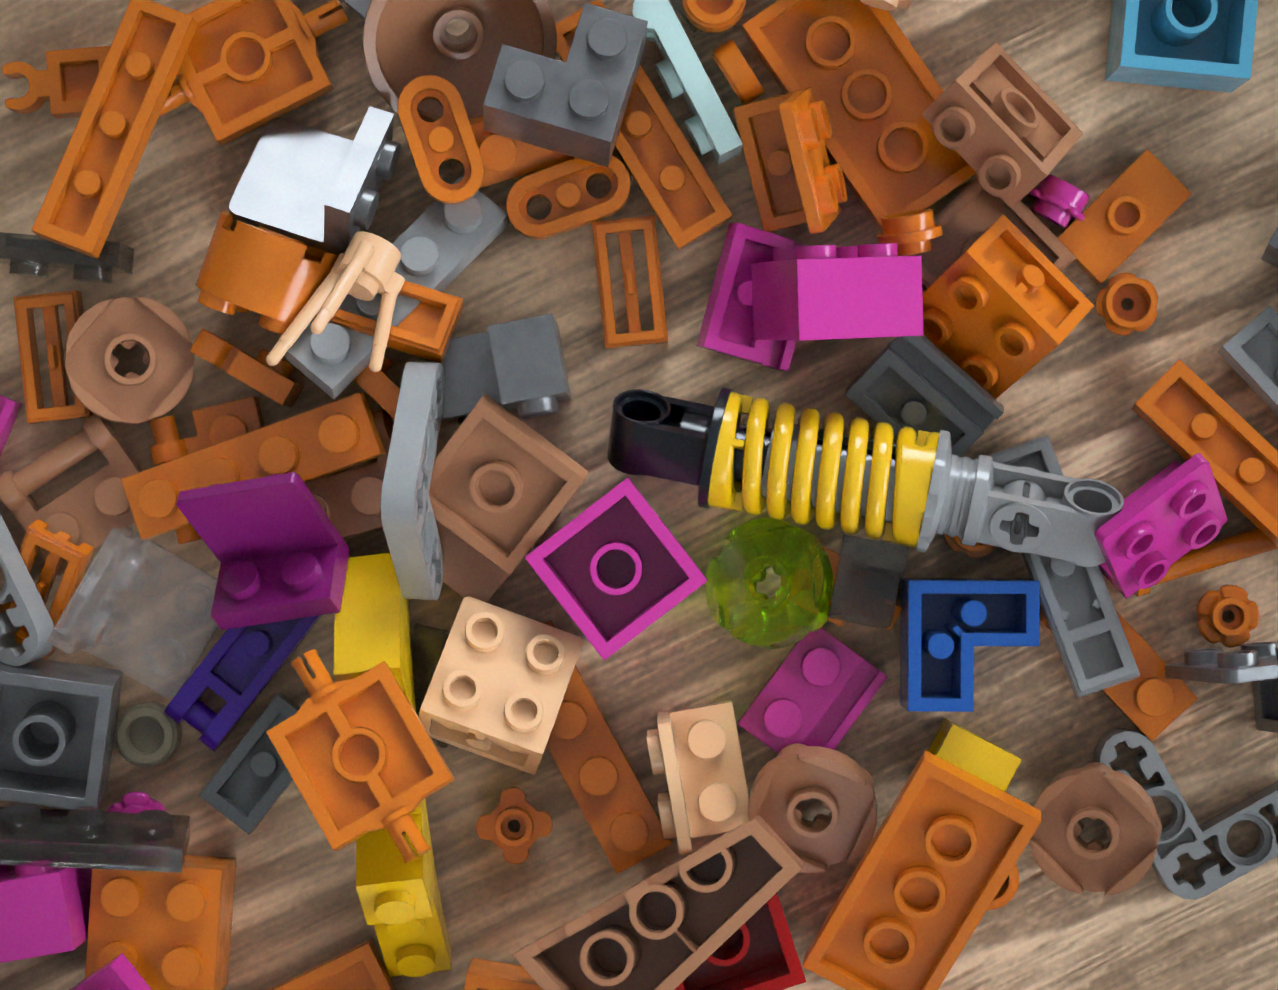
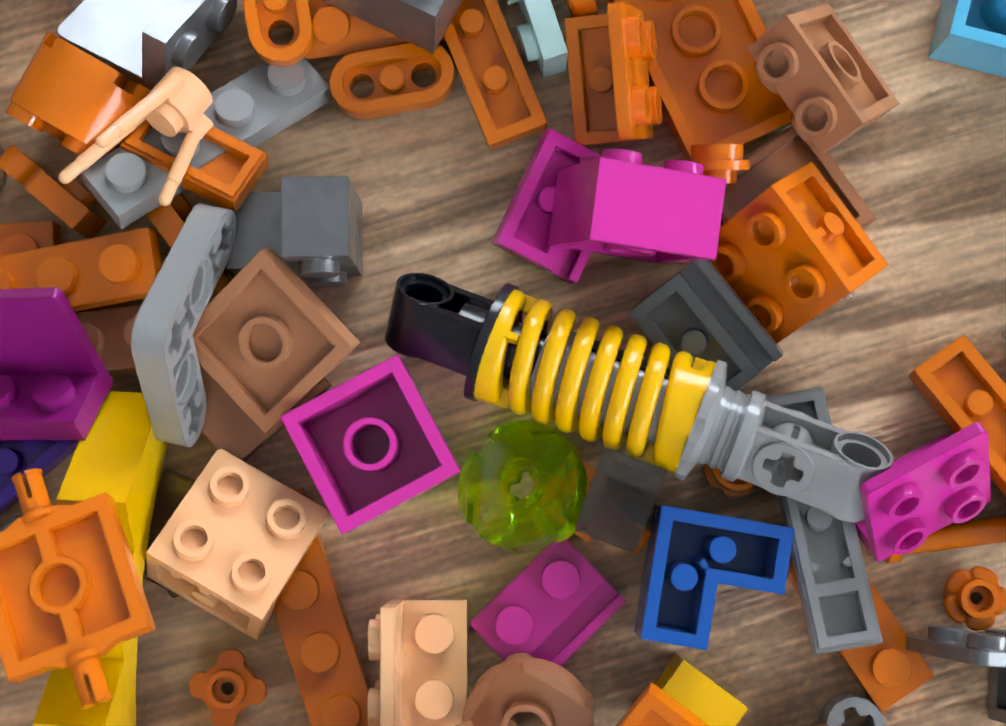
camera: 15 degrees right, 5 degrees down
(636, 336) = (435, 226): orange tile -> none
(1059, 201) = (867, 162): dark pink plate -> none
(1123, 216) = (927, 189): orange plate -> none
(1144, 301) = (931, 262): orange plate -> none

